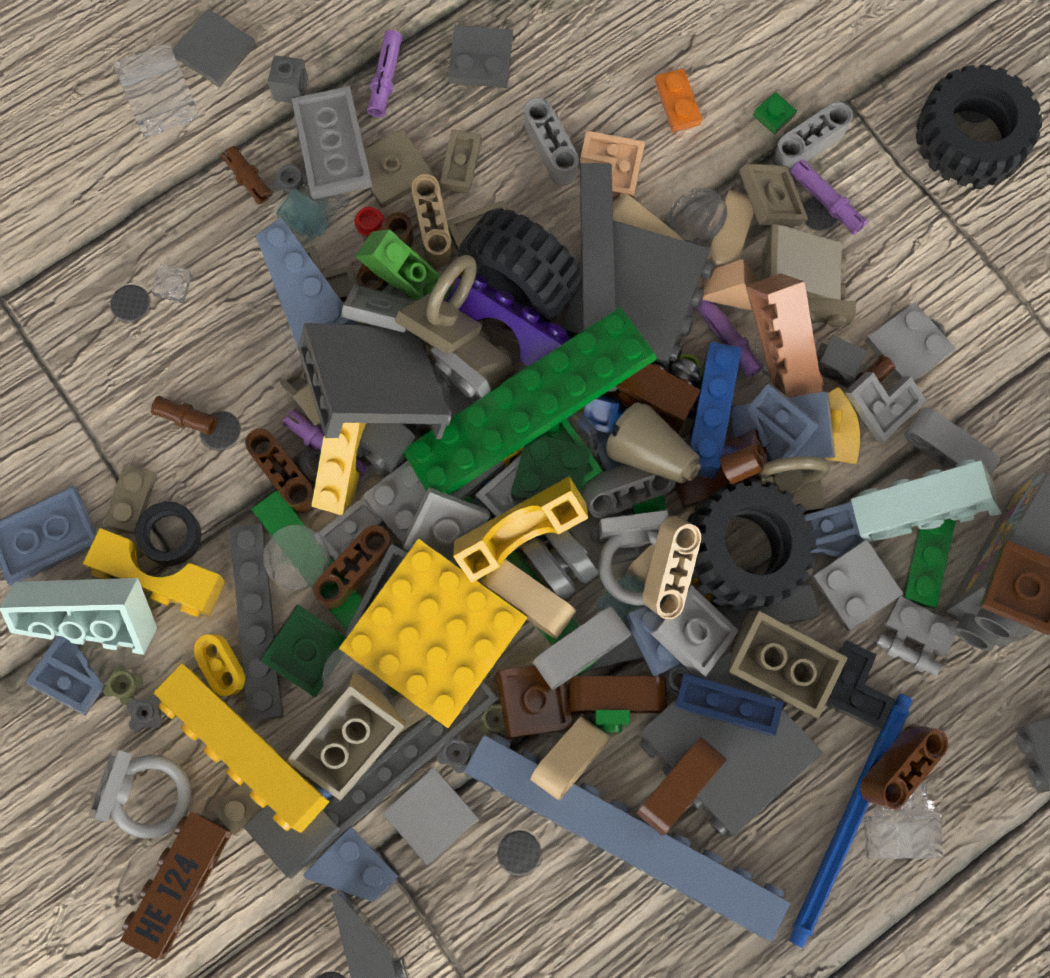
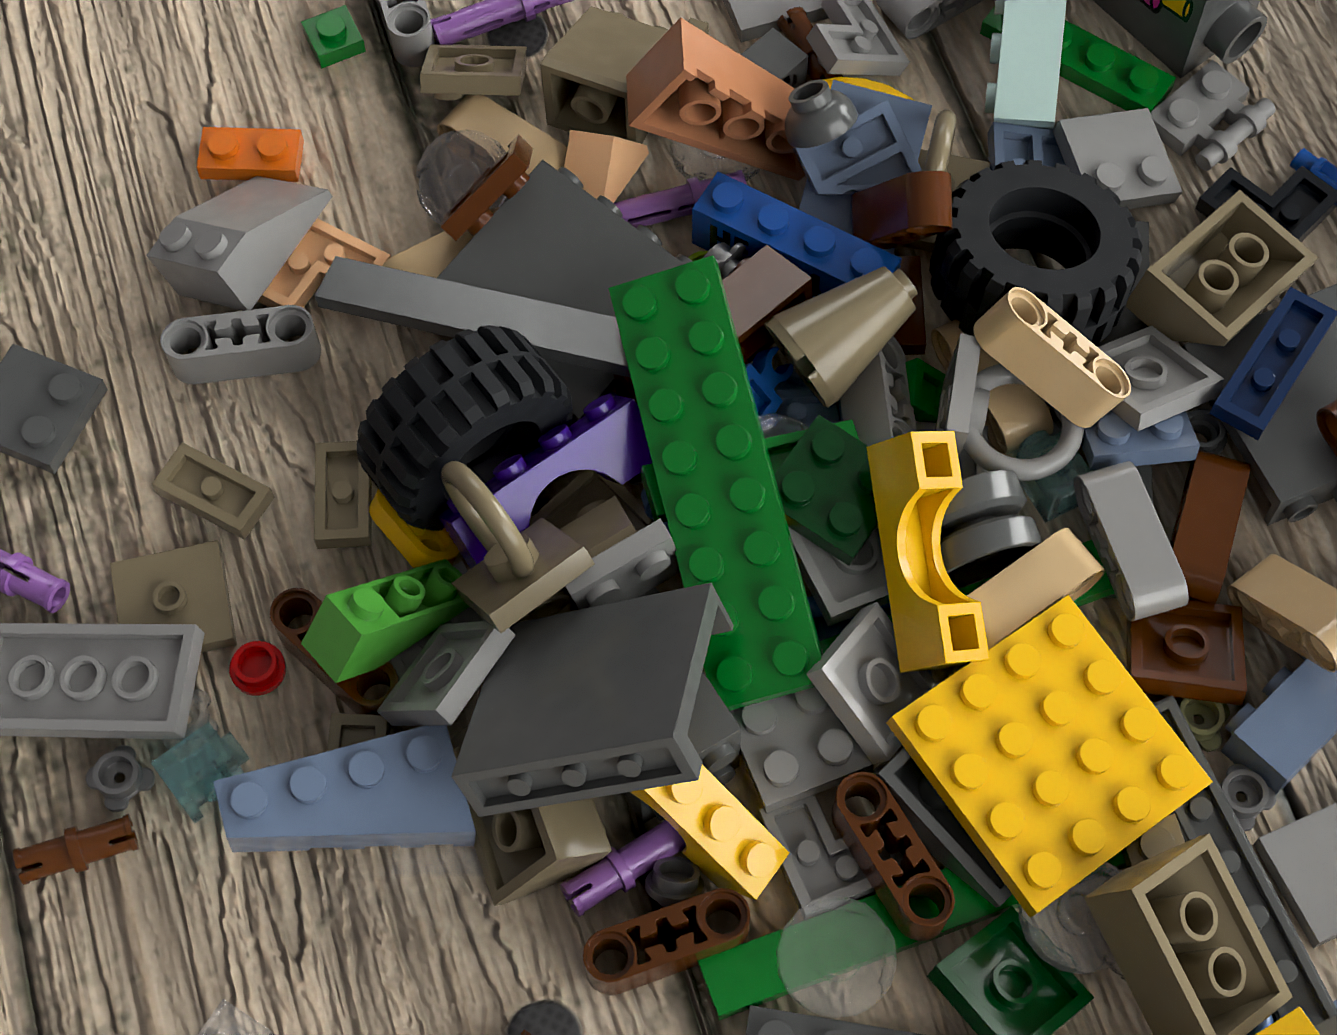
camera: 70 degrees left, 10 degrees down
(434, 204) = (297, 560): tan beam -> none
(612, 720) = (1248, 544): green plate -> none
(614, 113) = (237, 240): none -> light grey slope
(685, 230) = (504, 178): none -> reddish brown wing
(791, 389) = (817, 115): none -> dark grey piece

